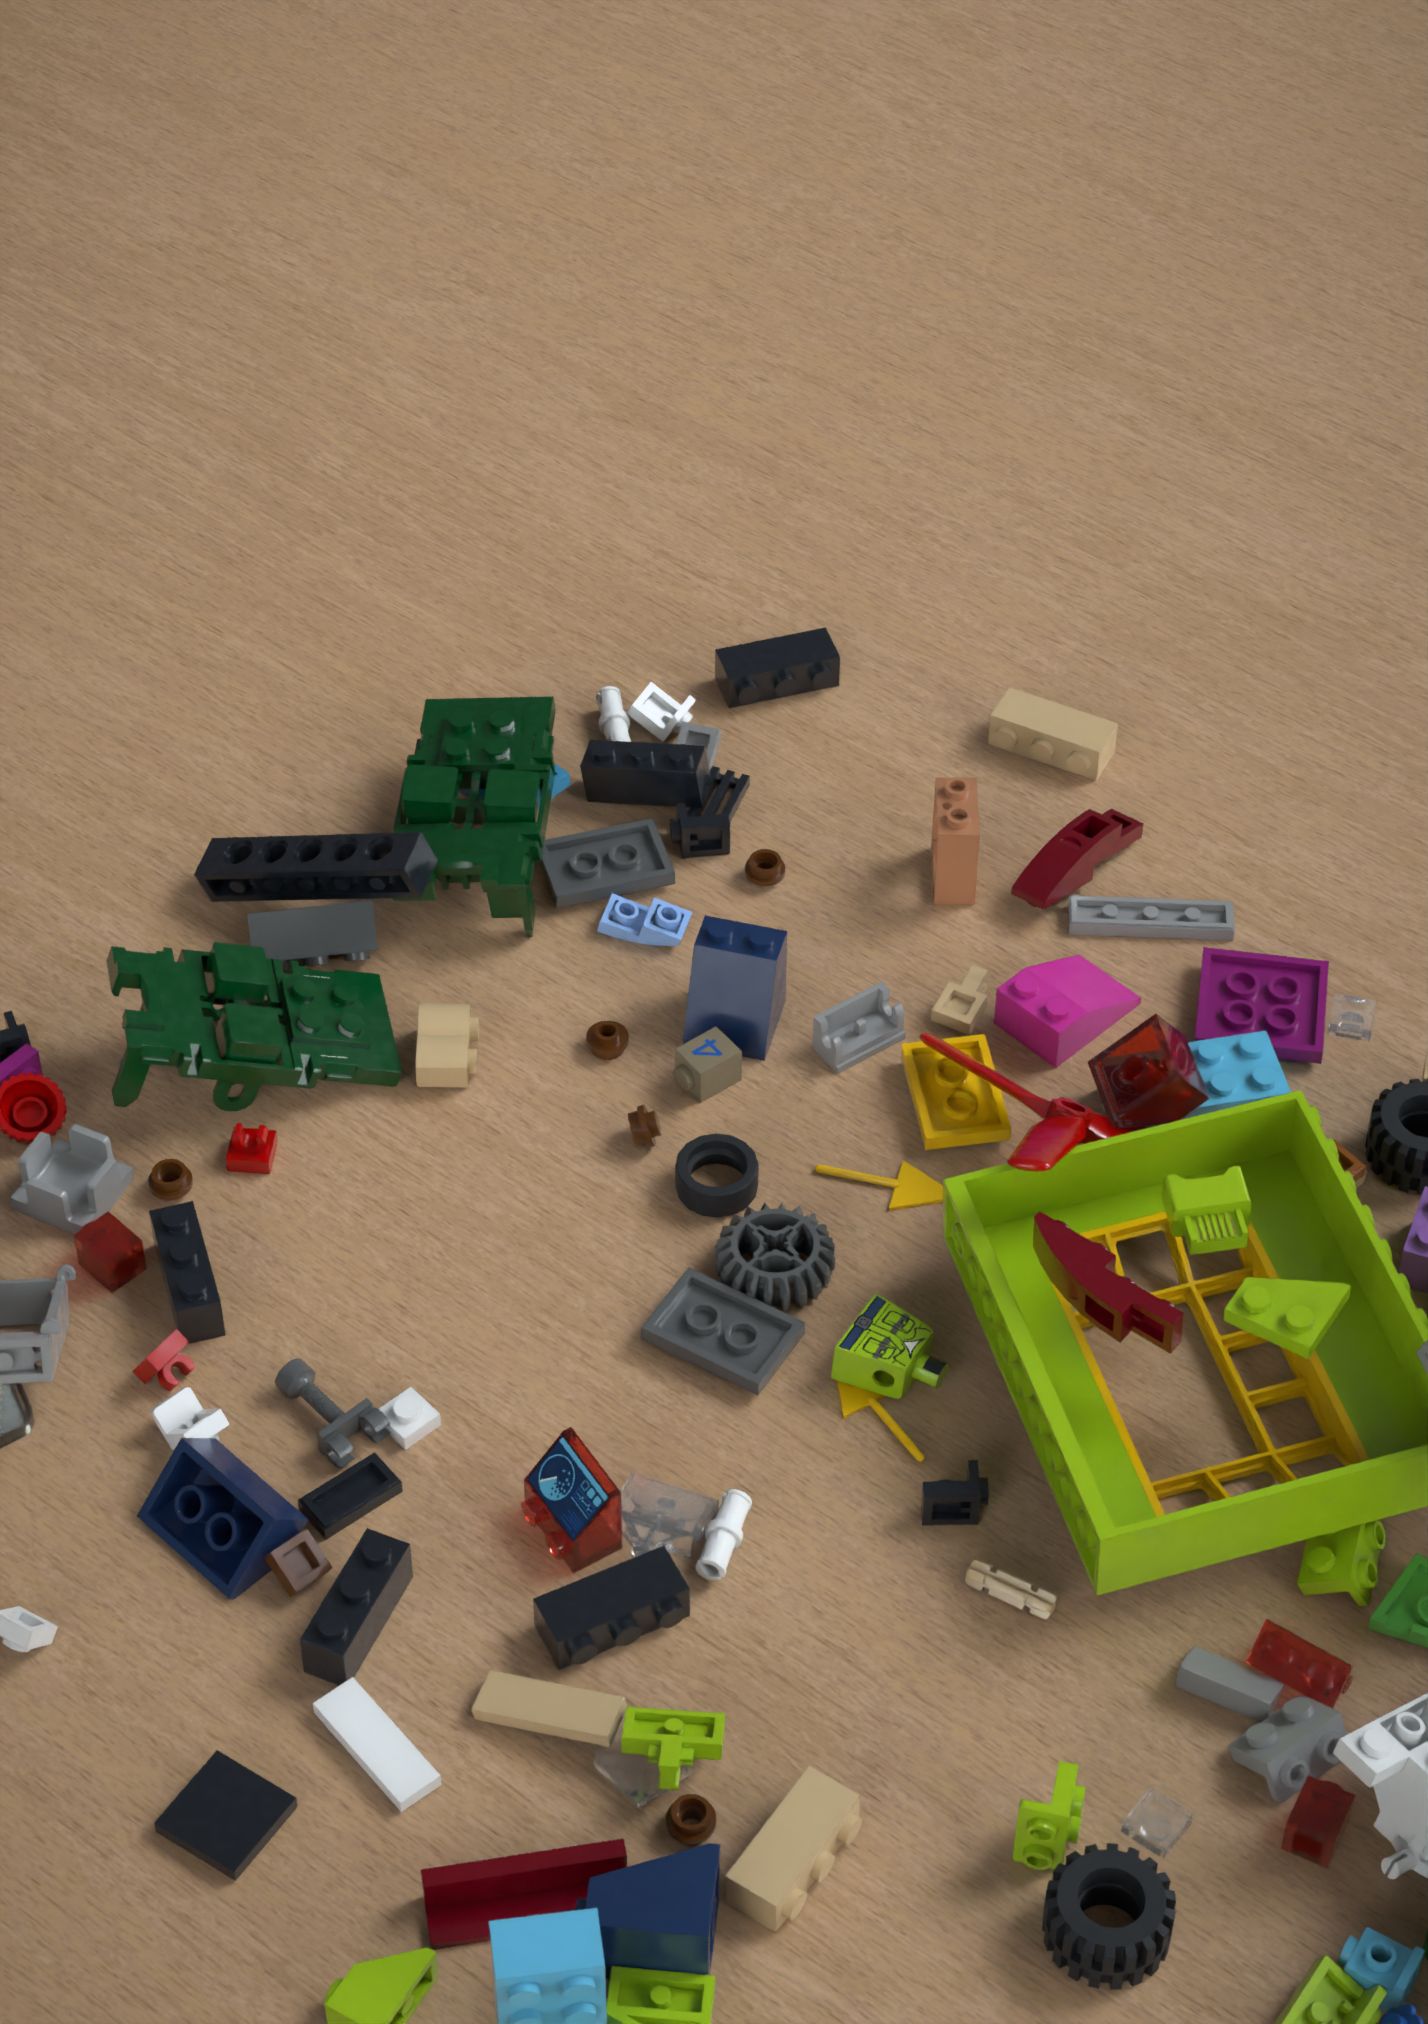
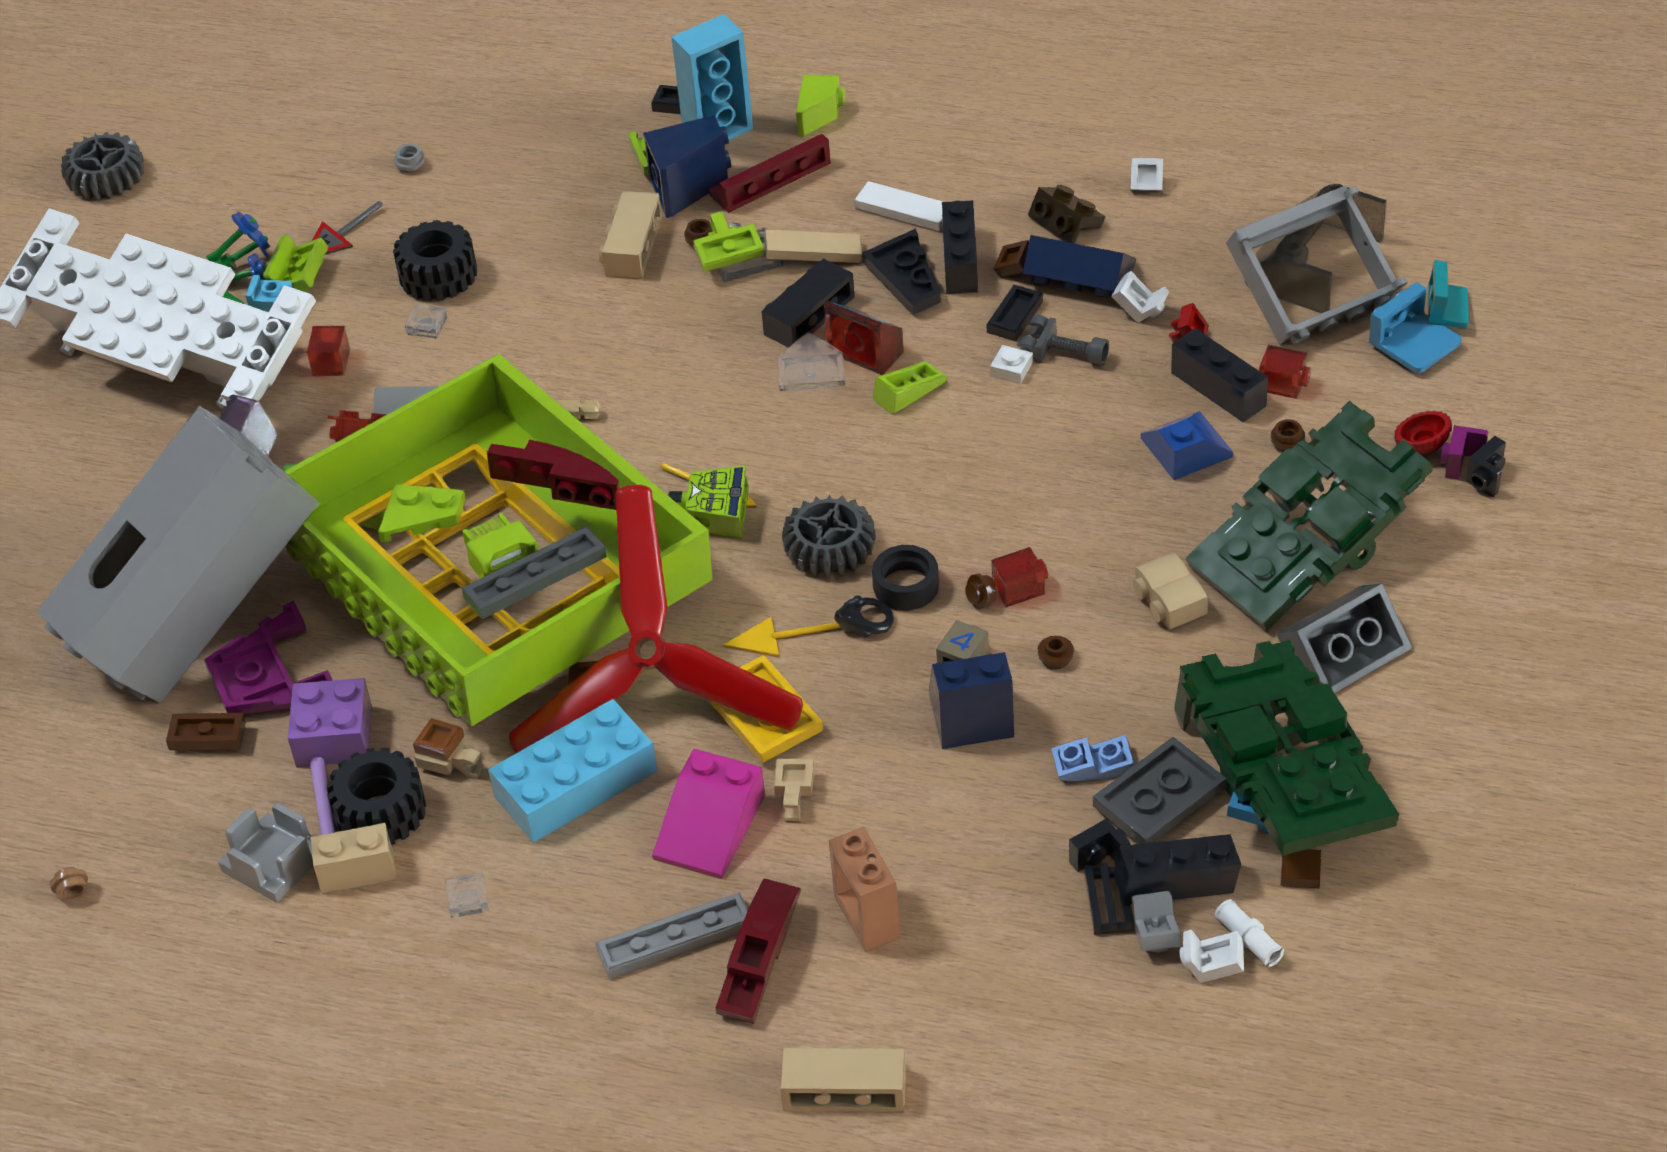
camera: 160 degrees right, 0 degrees up
(71, 1180) = (1351, 384): light grey panel -> none
(172, 1618) = (1063, 212): none -> dark brown bracket
(226, 1815) = (962, 149): black tile -> none
(251, 1149) = (1246, 474): red tile -> none
(287, 1216) = (1186, 445): none -> blue slope
(316, 867) = (1363, 640): black brick -> none
(449, 1616) = (904, 271): none -> black wing
(549, 1424) = (905, 386): none -> lime slope
(592, 1123) = (1019, 576): none -> clear red brick
(723, 1331) = (849, 474): dark grey plate -> none
(723, 1535) = (764, 368): white pin -> none
(765, 868) = (1028, 837): reddish brown plate -> none
(777, 667) = (1139, 1049): black brick -> none
(804, 1155) = (851, 619): none -> black piece
(858, 1028) = (865, 729): light grey hinge -> none
(955, 1501) = (626, 432): black bracket -> none
(1047, 1828) = (487, 276): lime bracket -> none
(1143, 1170) = (534, 572): none -> dark grey plate
(1148, 1076) = (596, 702): clear red slope -> none
(1264, 993) = (547, 878): magenta plate -> none
(1291, 1745) = (358, 384): light grey bracket -> none

